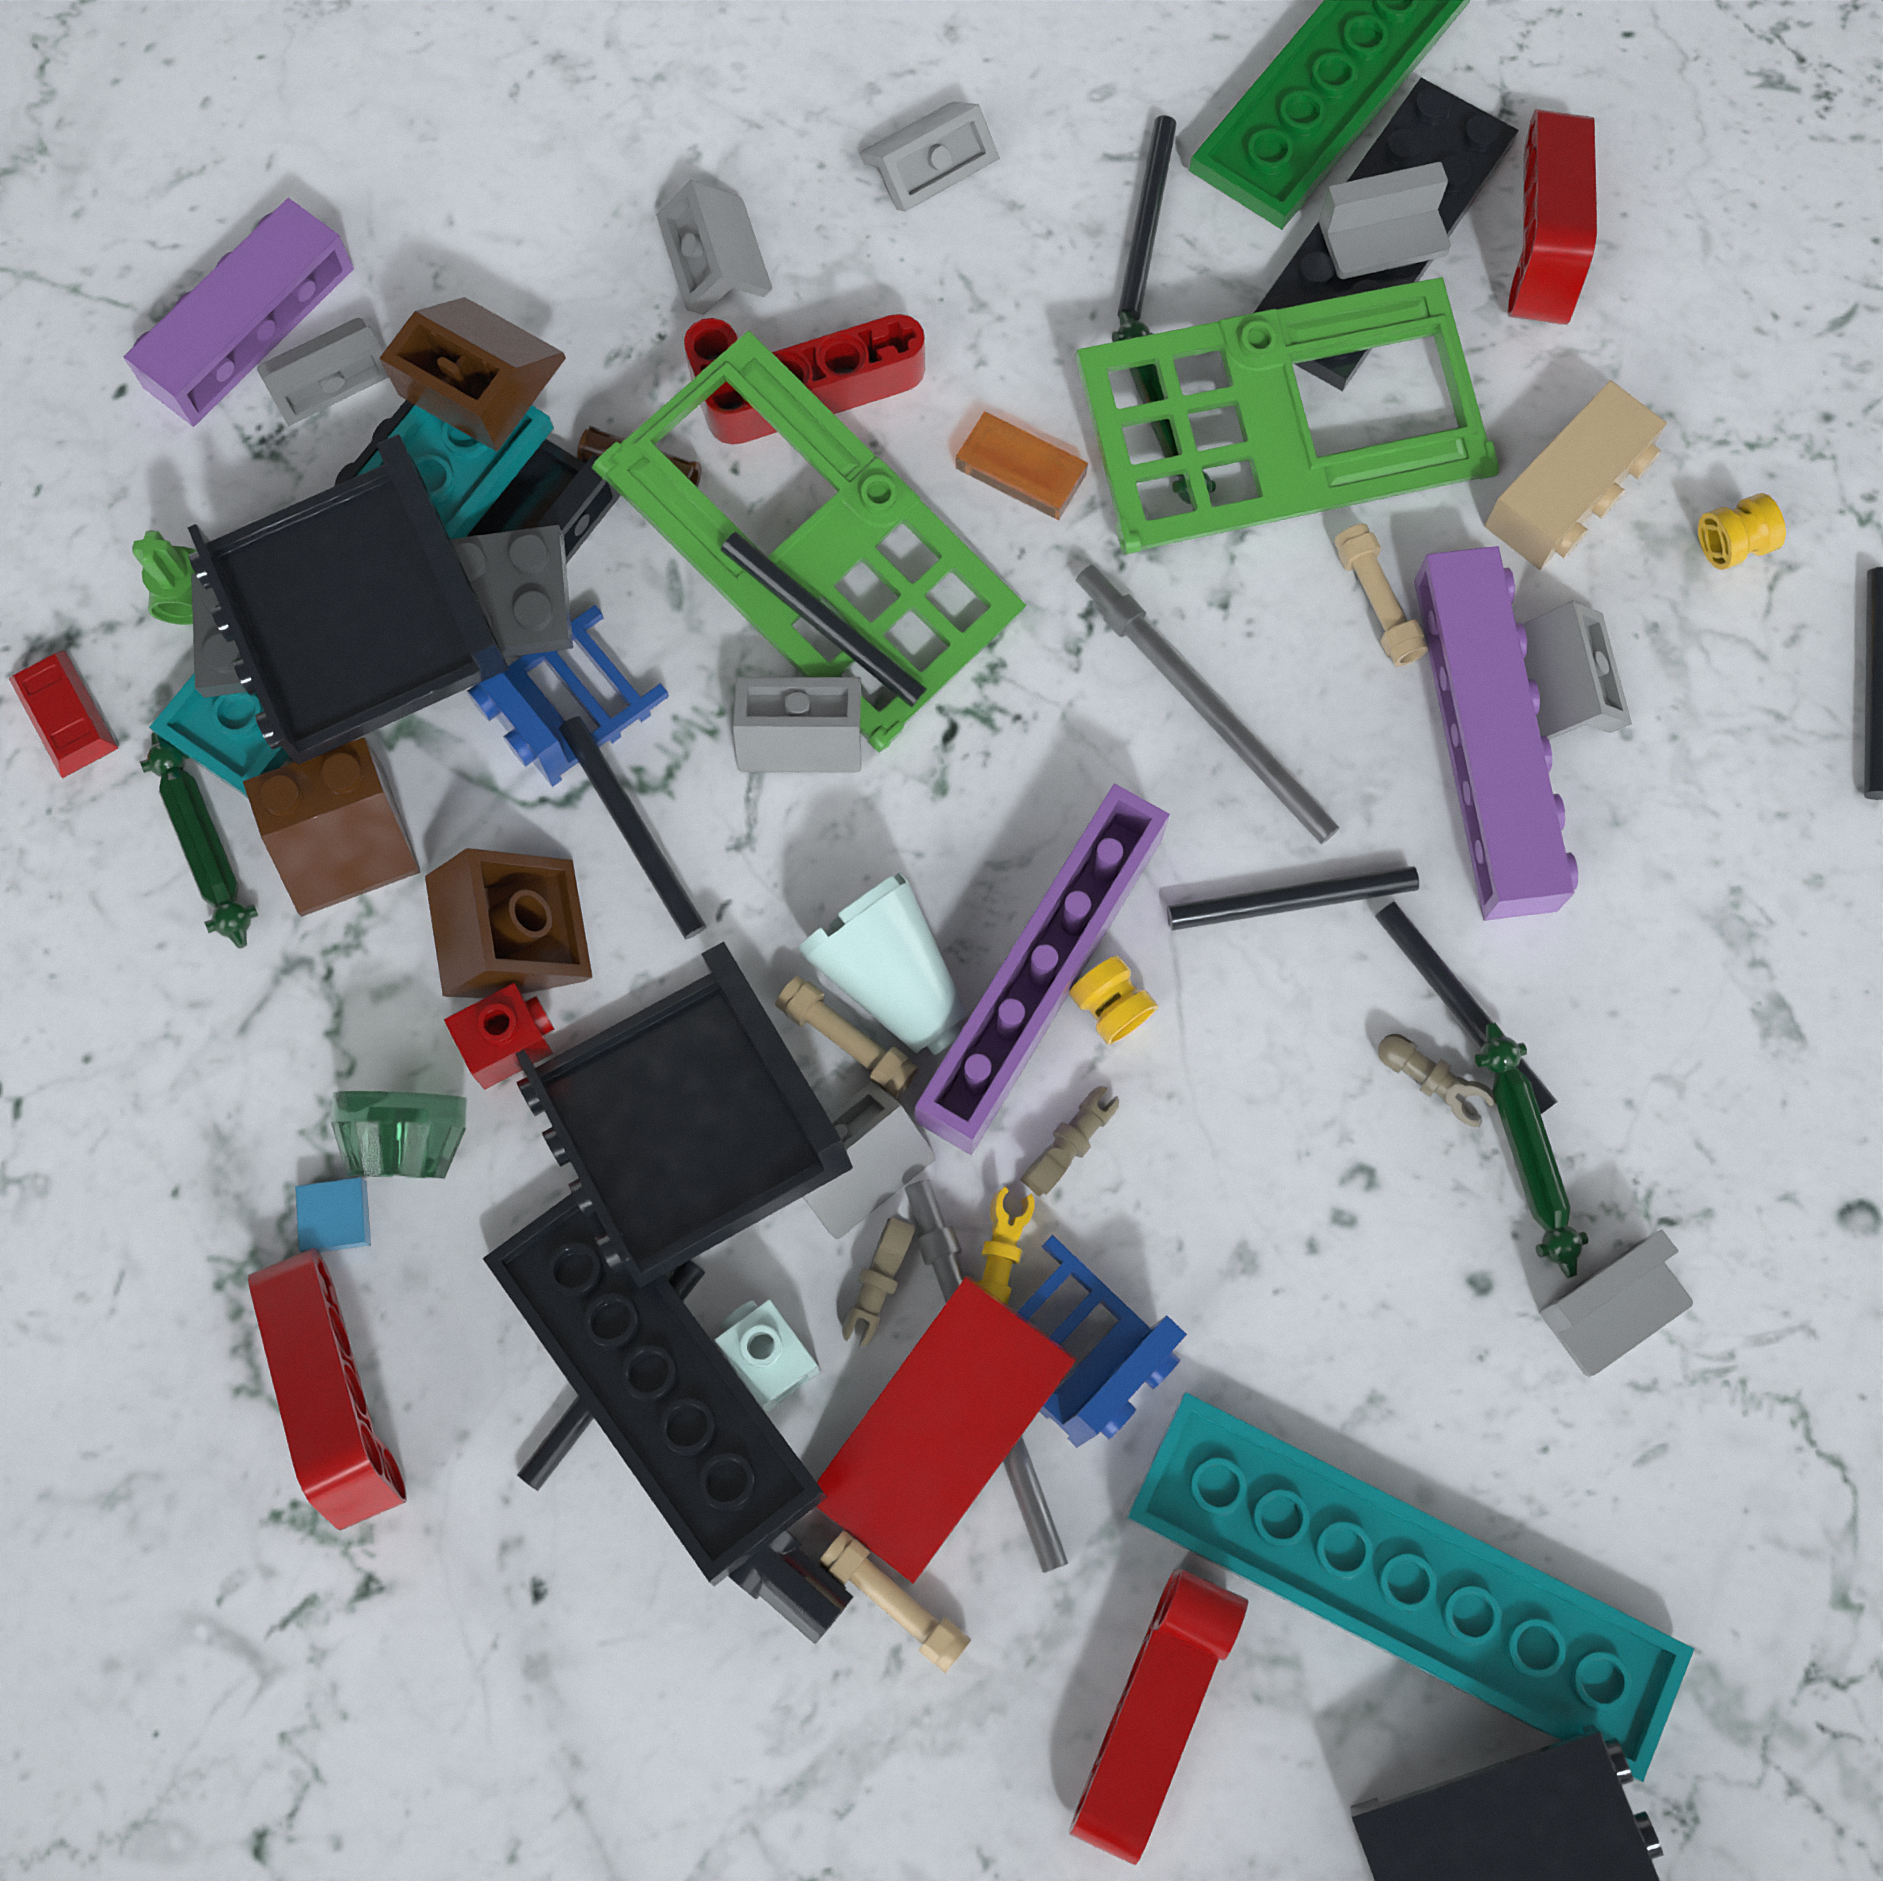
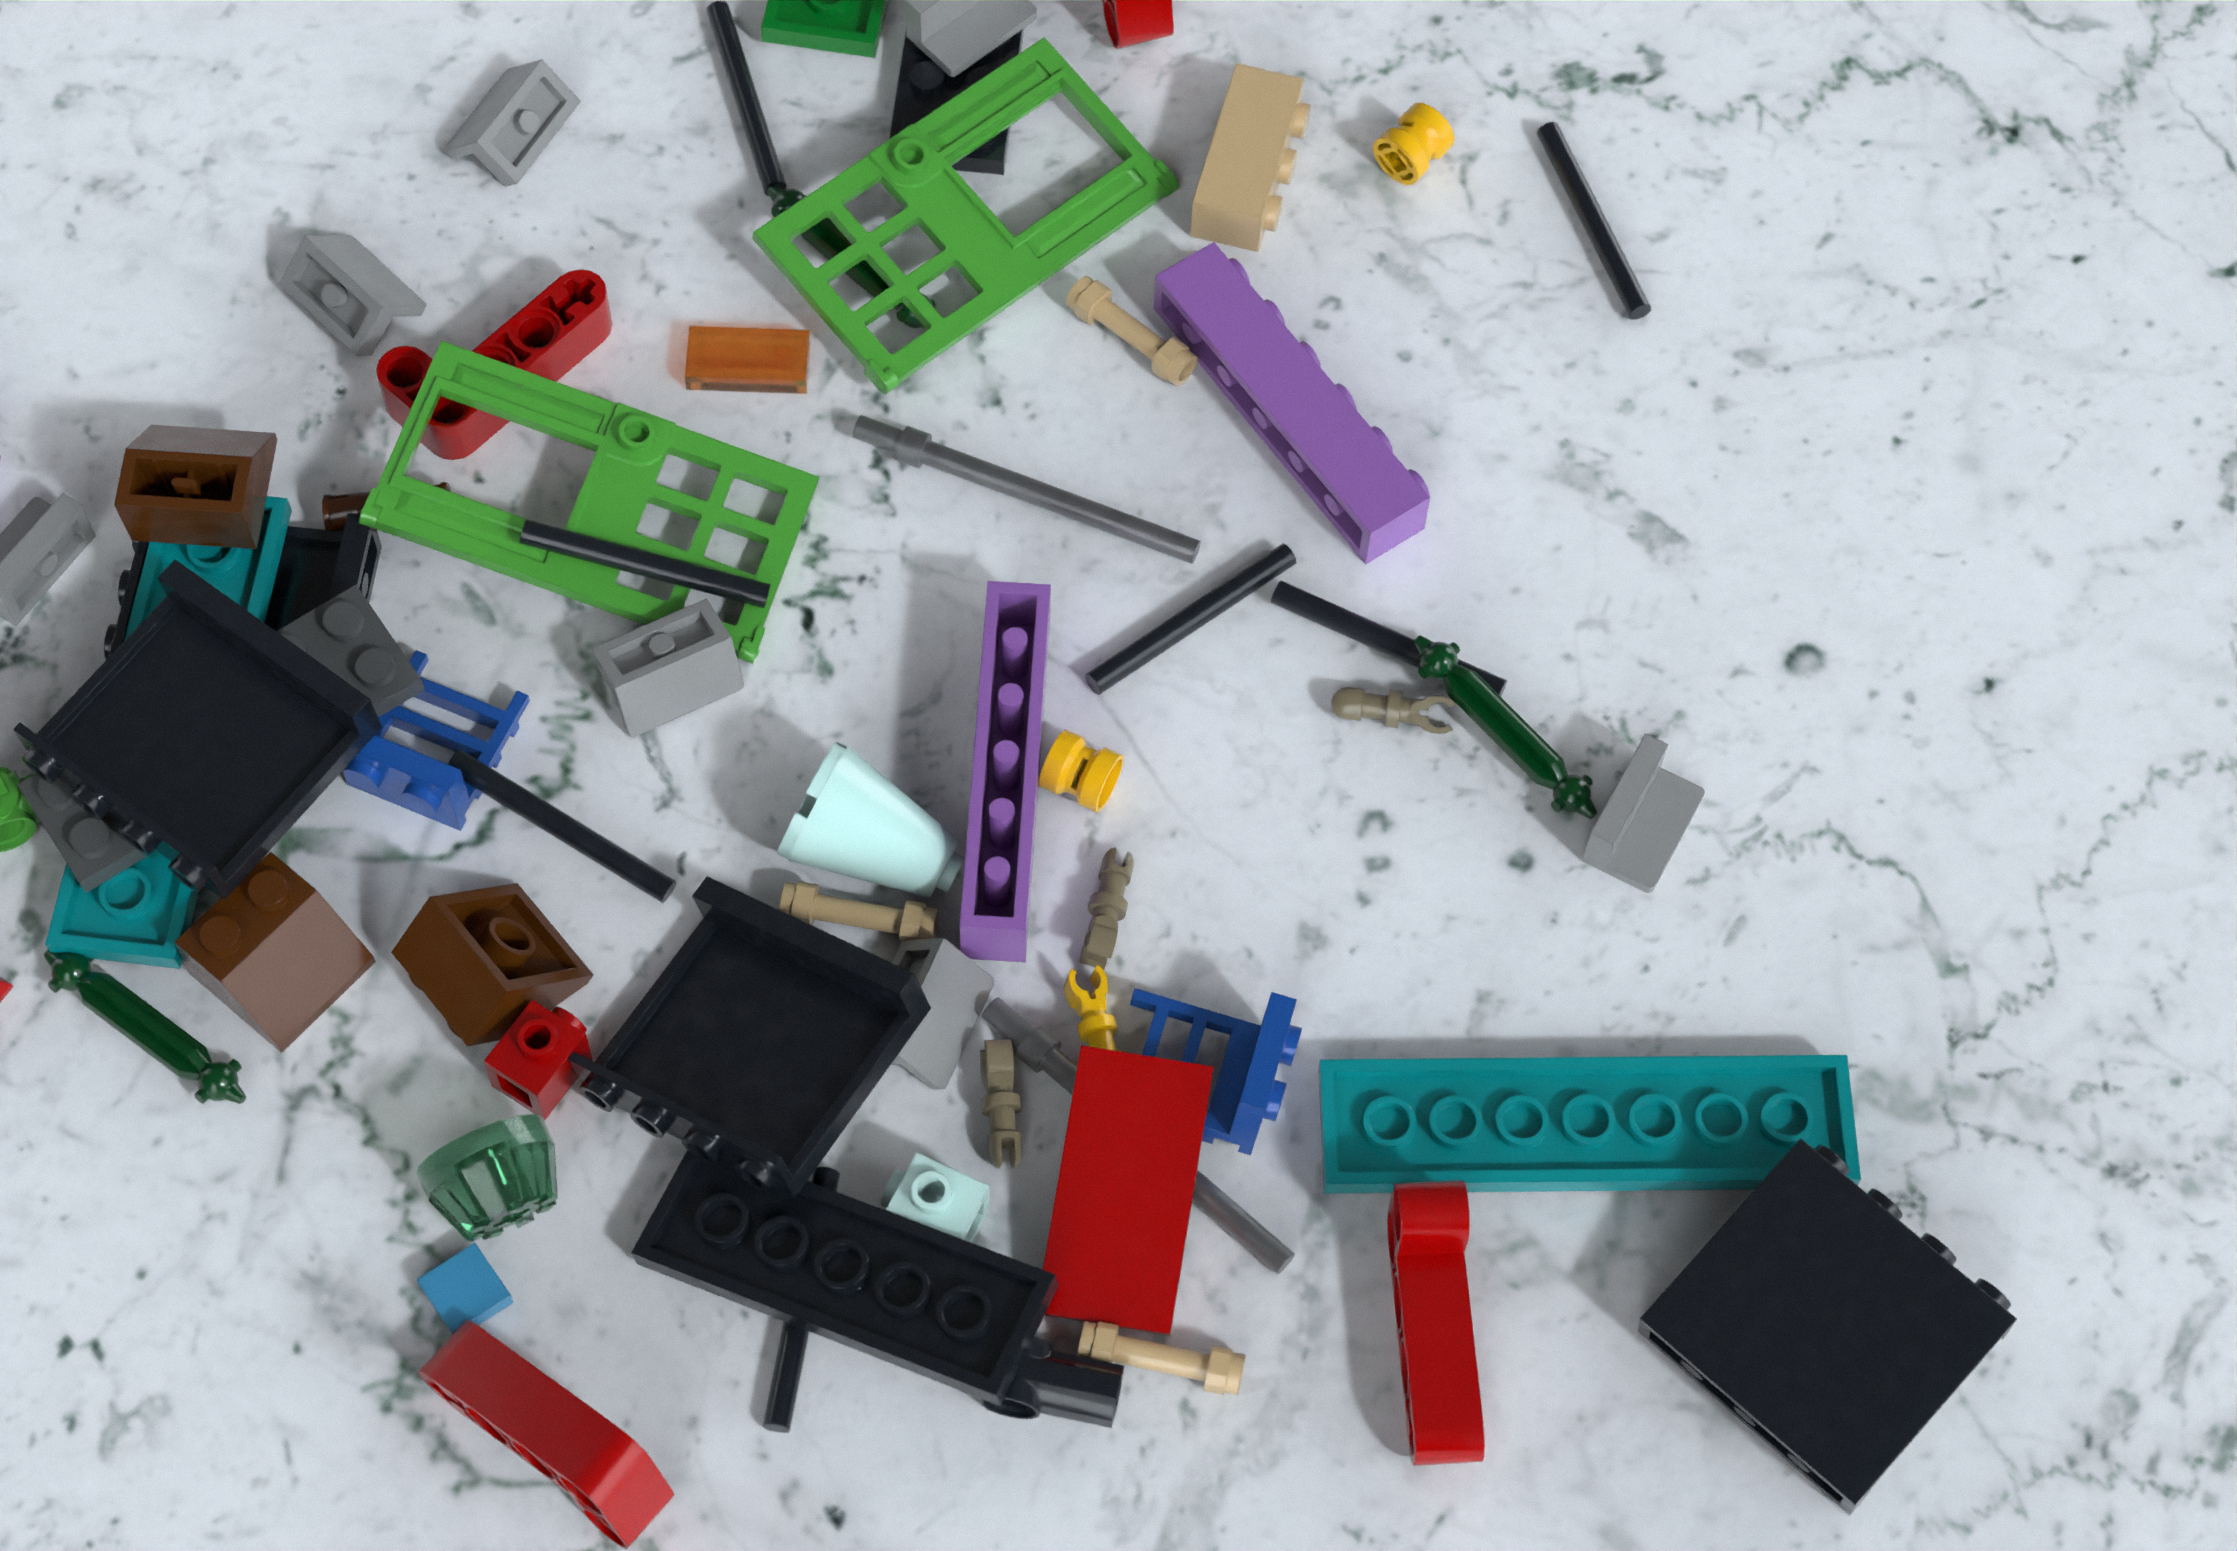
camera: 30 degrees left, 10 degrees down
(1574, 671) = (1334, 320): light grey panel -> none

